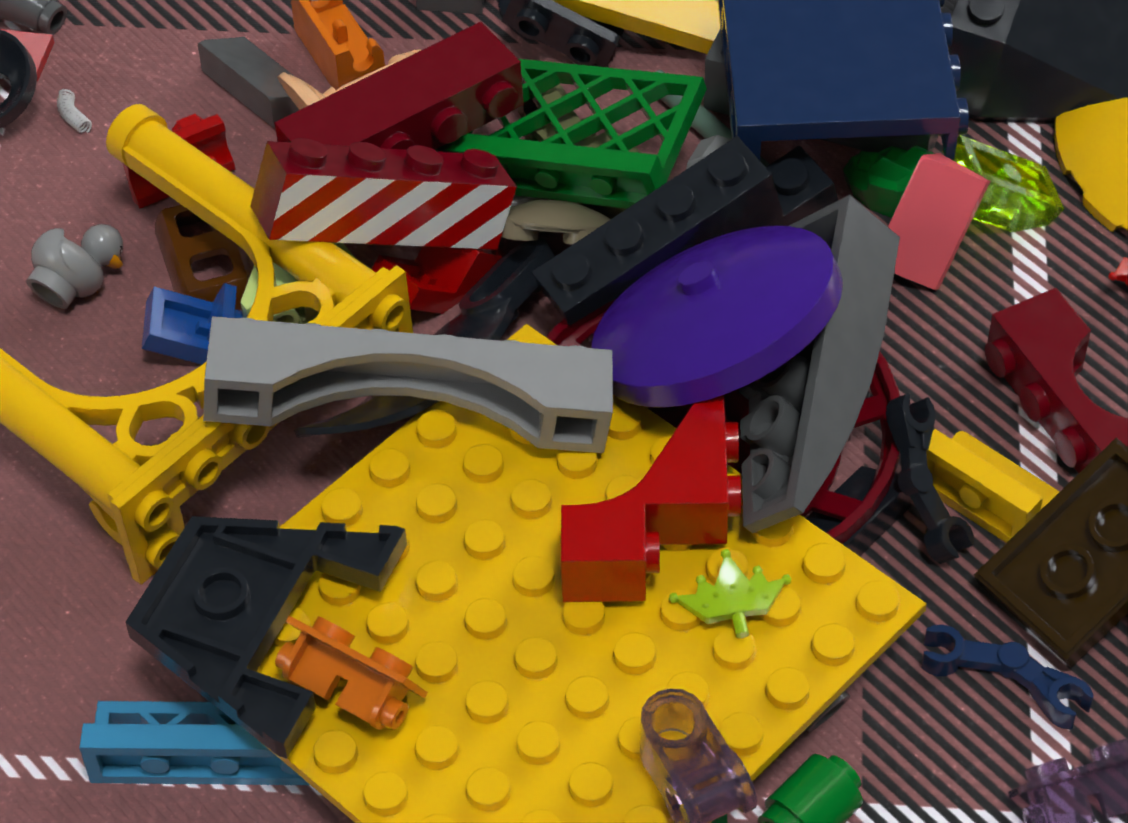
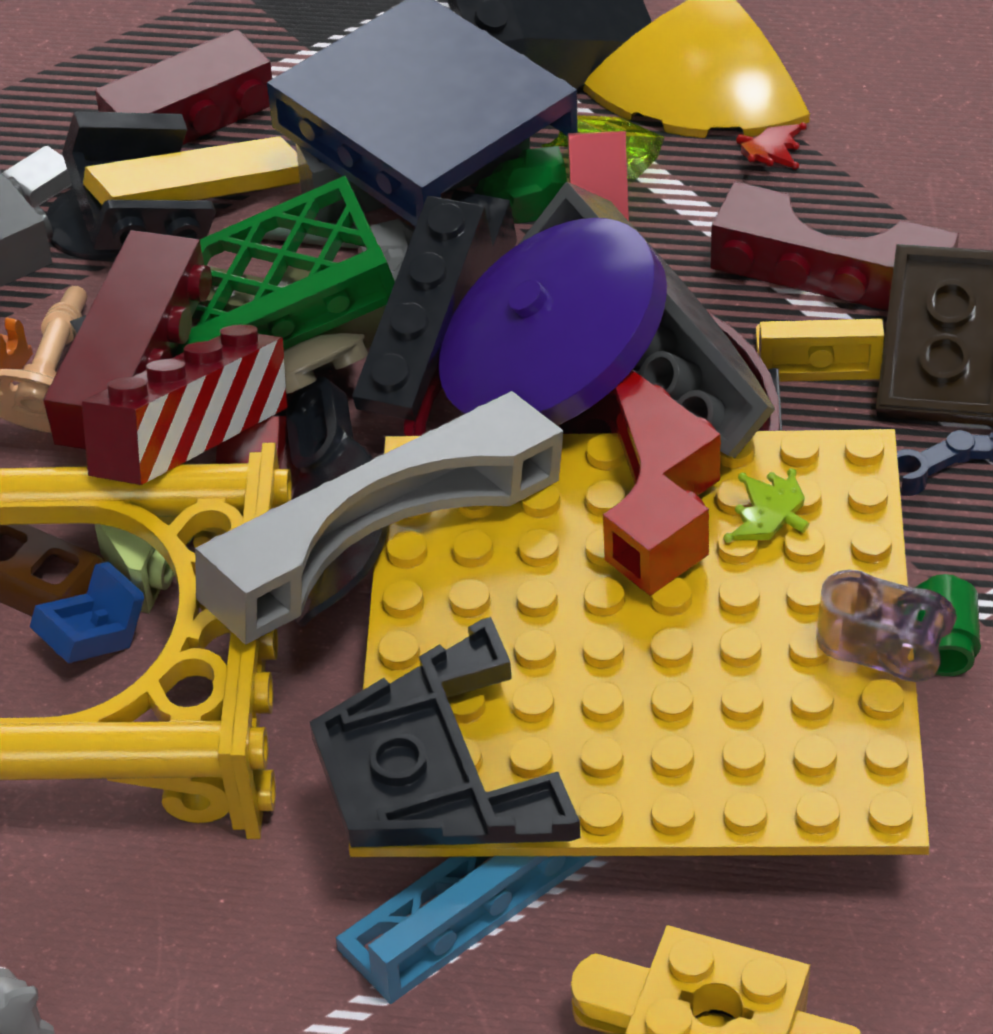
camera: 40 degrees left, 5 degrees down
(373, 685) = (585, 733): orange hinge -> none
(912, 437) = (751, 327): black piece -> none

